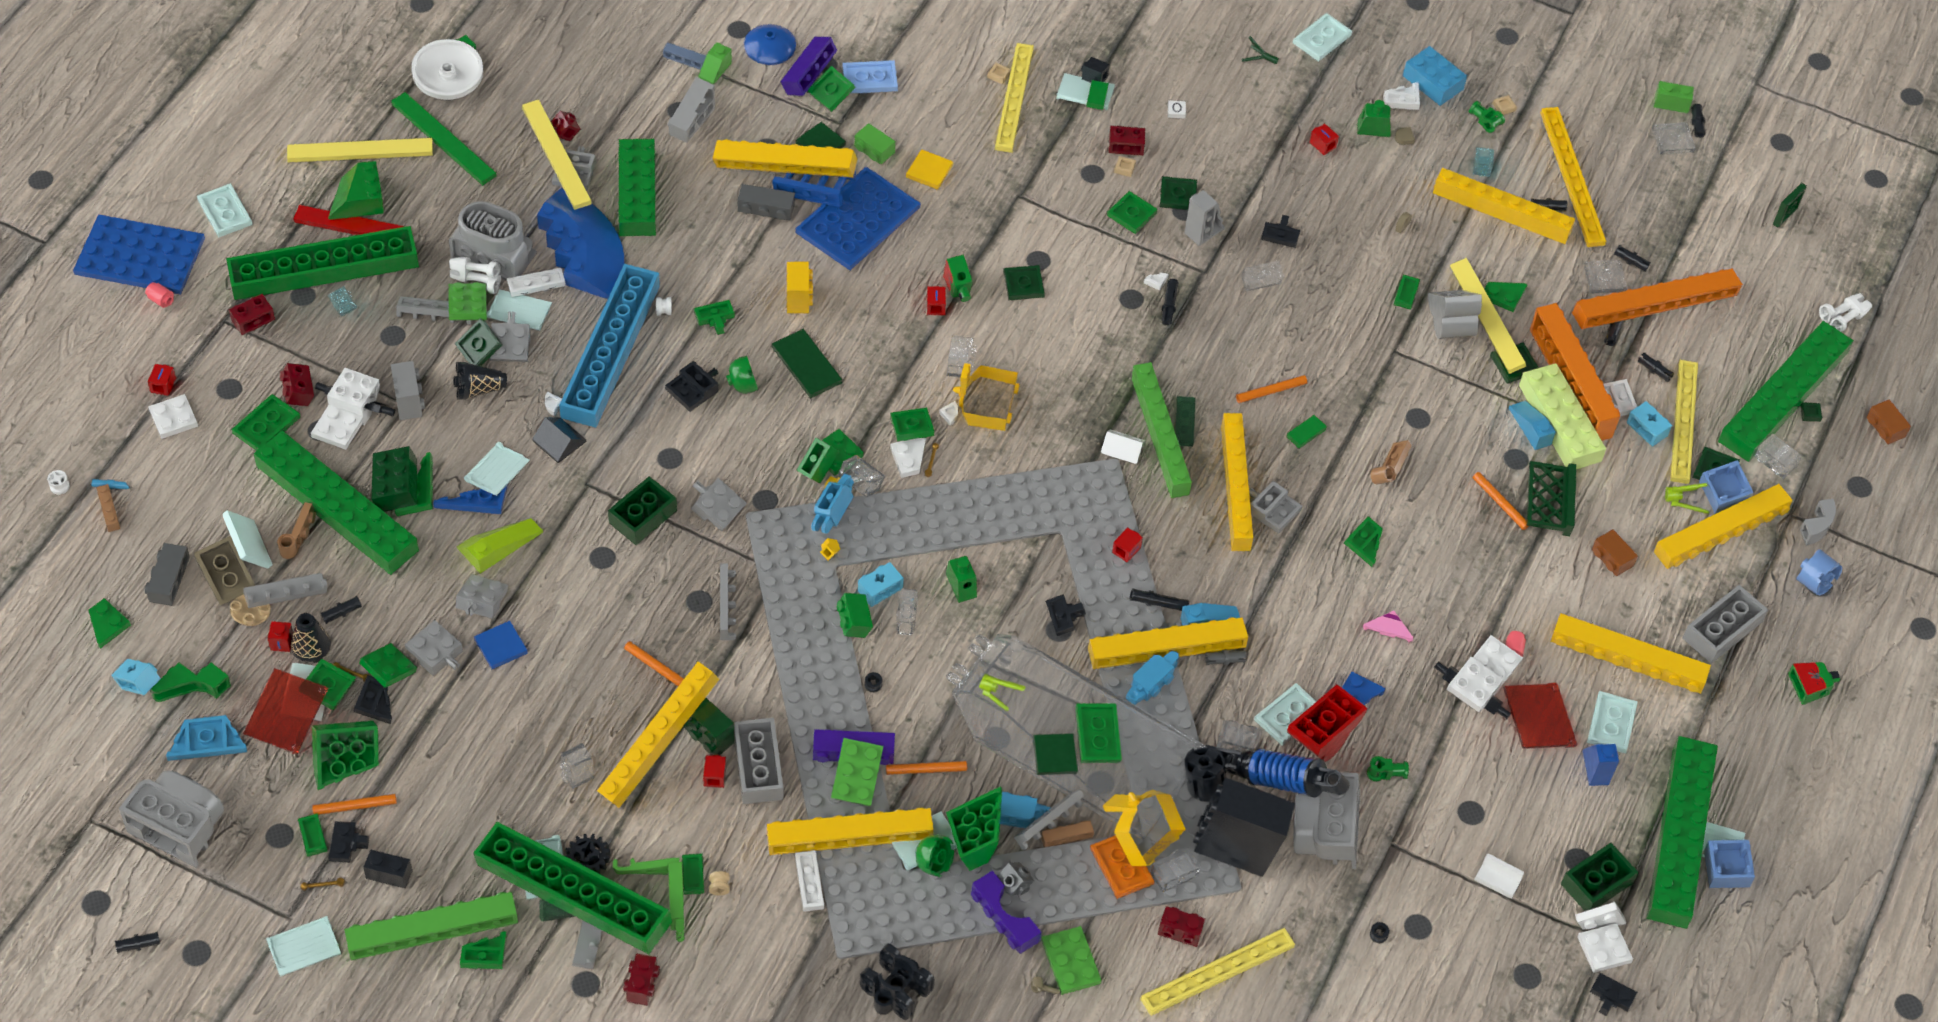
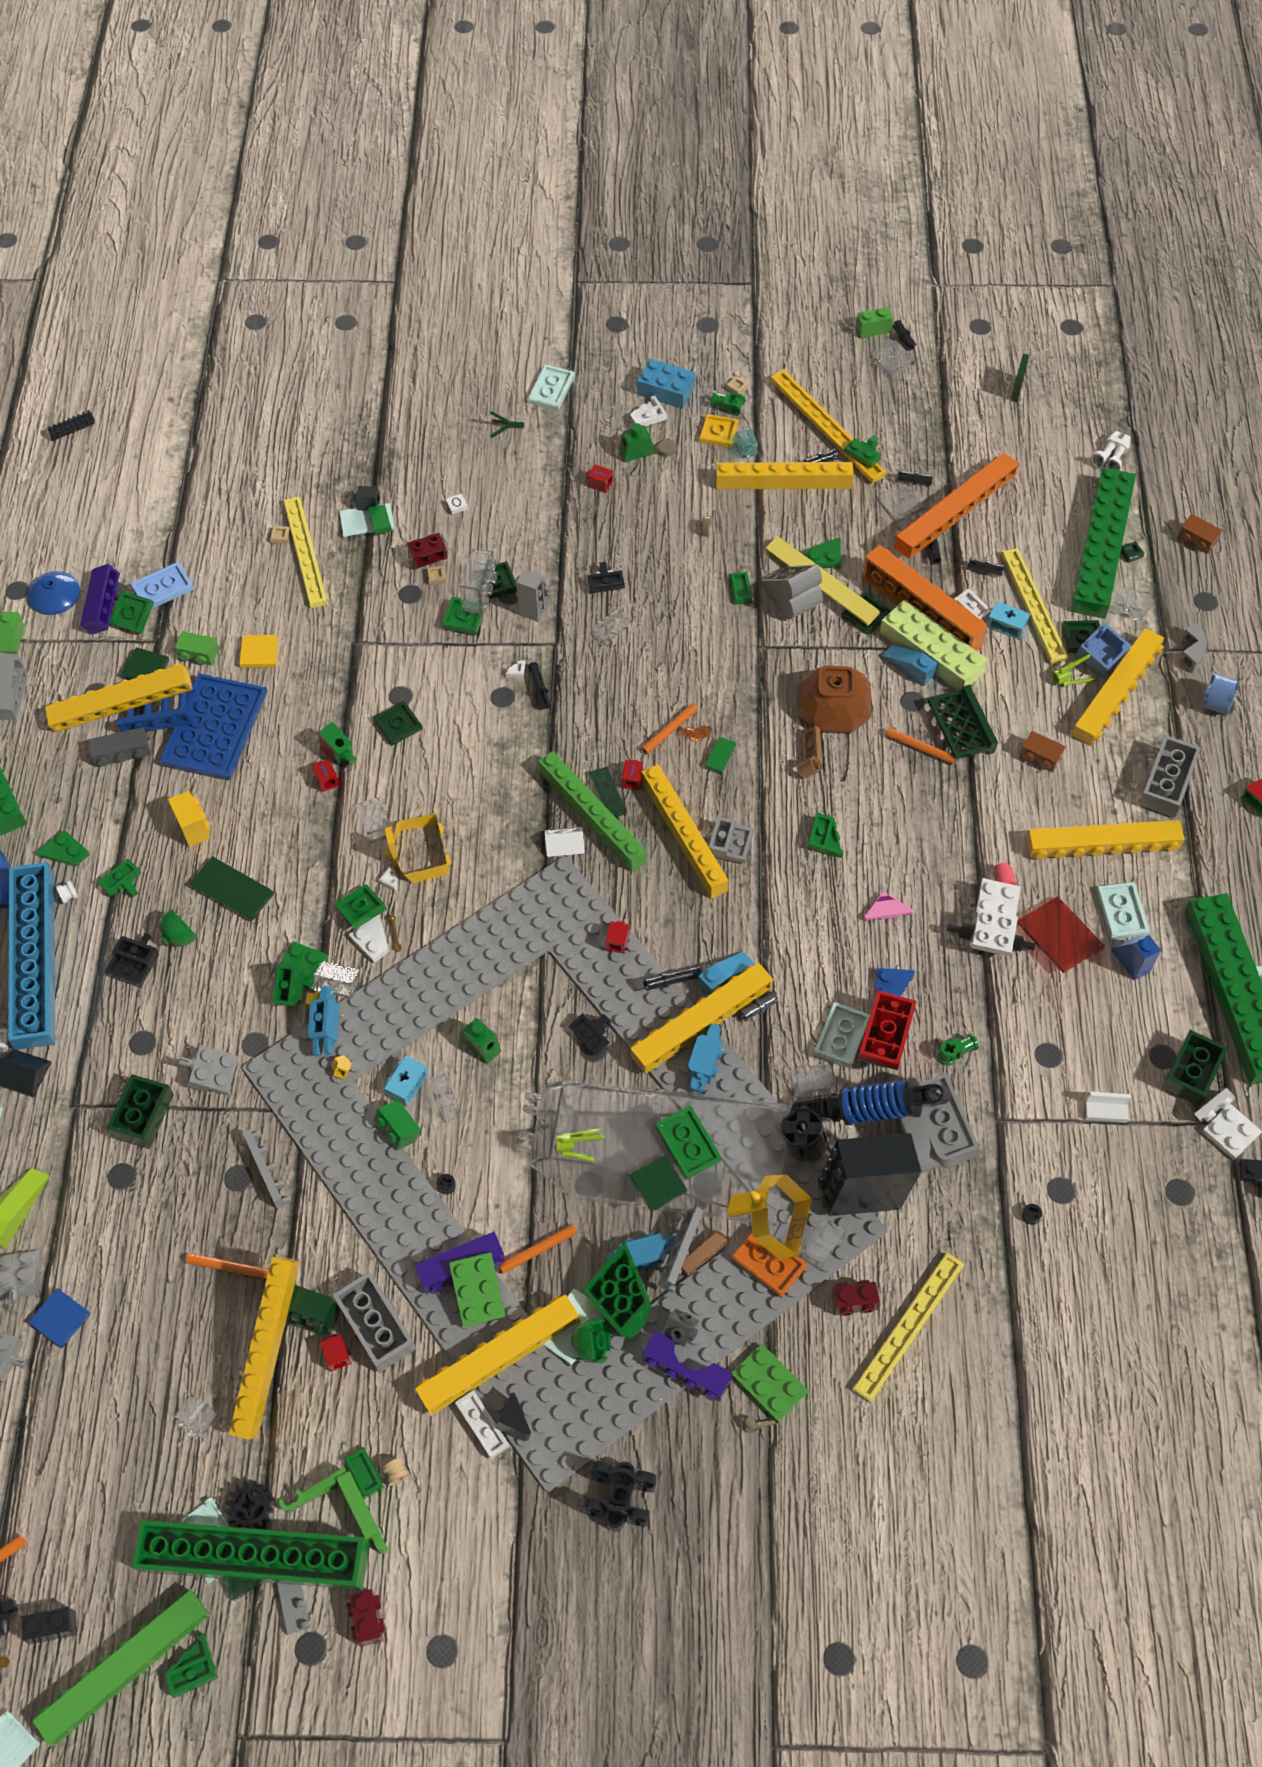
camera: 20 degrees left, 5 degrees up
(677, 270) = (64, 849): none -> green wing
(835, 886) = (513, 1420): none -> black slope
(1158, 185) = (478, 581): none -> clear piece
(1213, 414) = (632, 775): none -> red brick
(1296, 404) = (699, 733): none -> clear orange arm
(1441, 433) = (831, 706): none -> dark orange rock
(1463, 140) = (718, 431): none -> yellow tile
(1594, 214) = (864, 451): none -> green hinge

